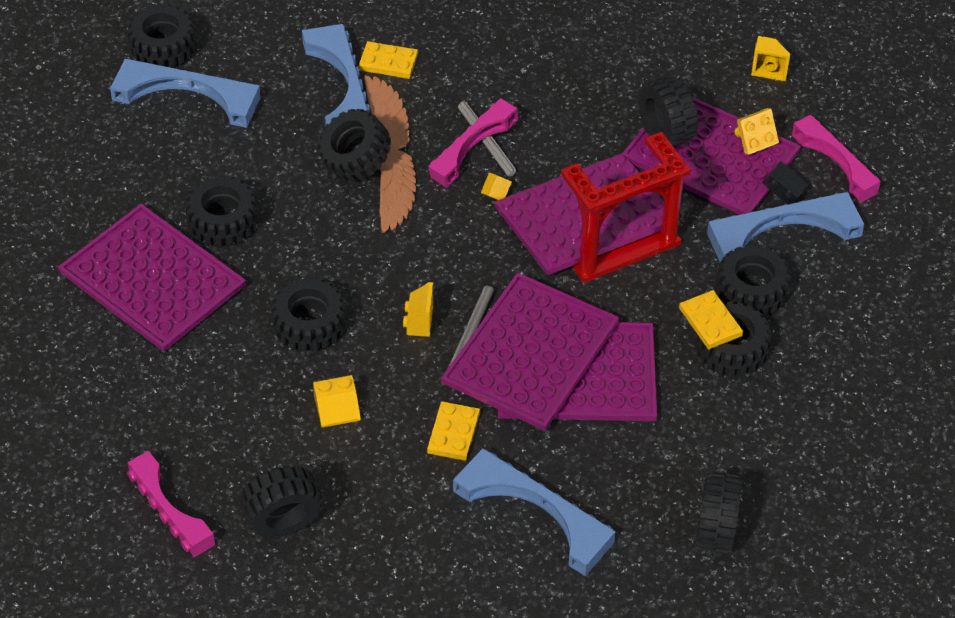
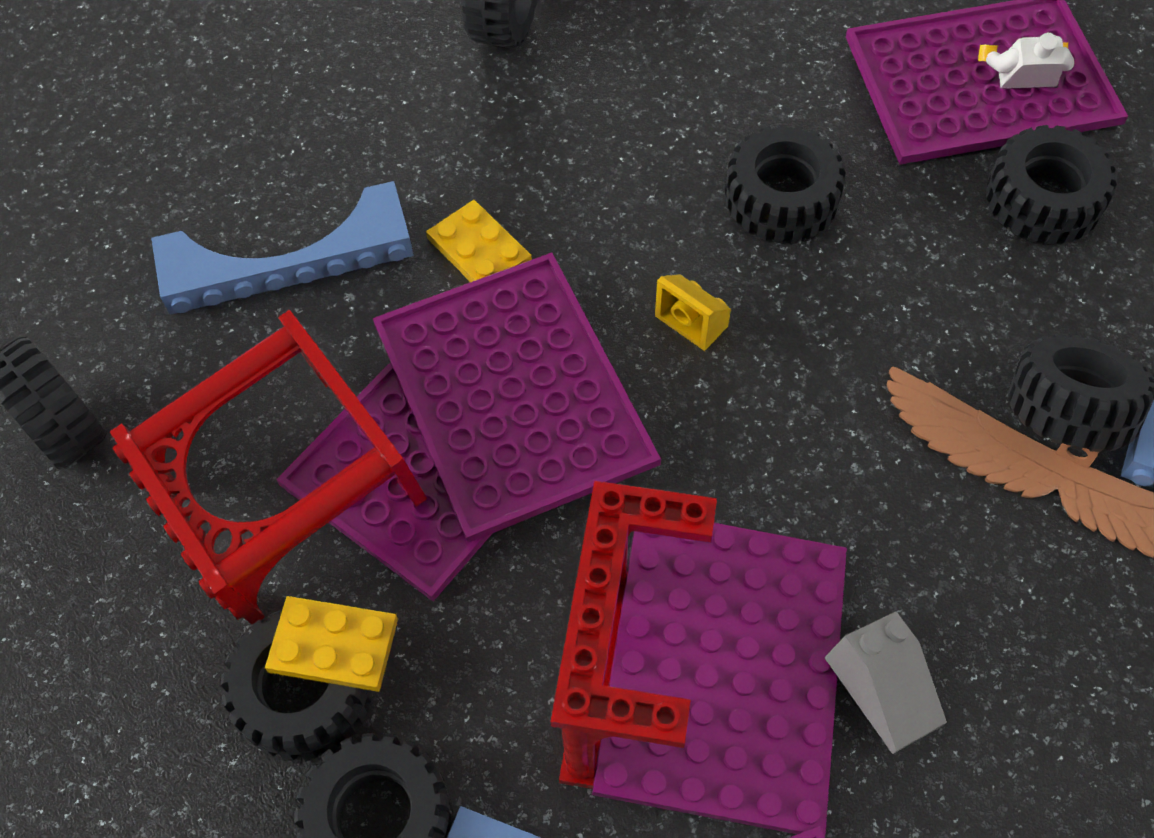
camera: 130 degrees right, 10 degrees up
(144, 244) = (1030, 61): none -> white torso
(336, 401) = (625, 149): yellow slope -> none
(476, 318) = (633, 376): light grey axle -> none
(489, 142) = (1010, 634): light grey axle -> none
(496, 119) = (1026, 655): dark pink arch -> none
(496, 186) = (876, 569): yellow panel -> none
(543, 160) = (889, 681): none -> light grey slope
(692, 443) = (239, 571): none -> red arch

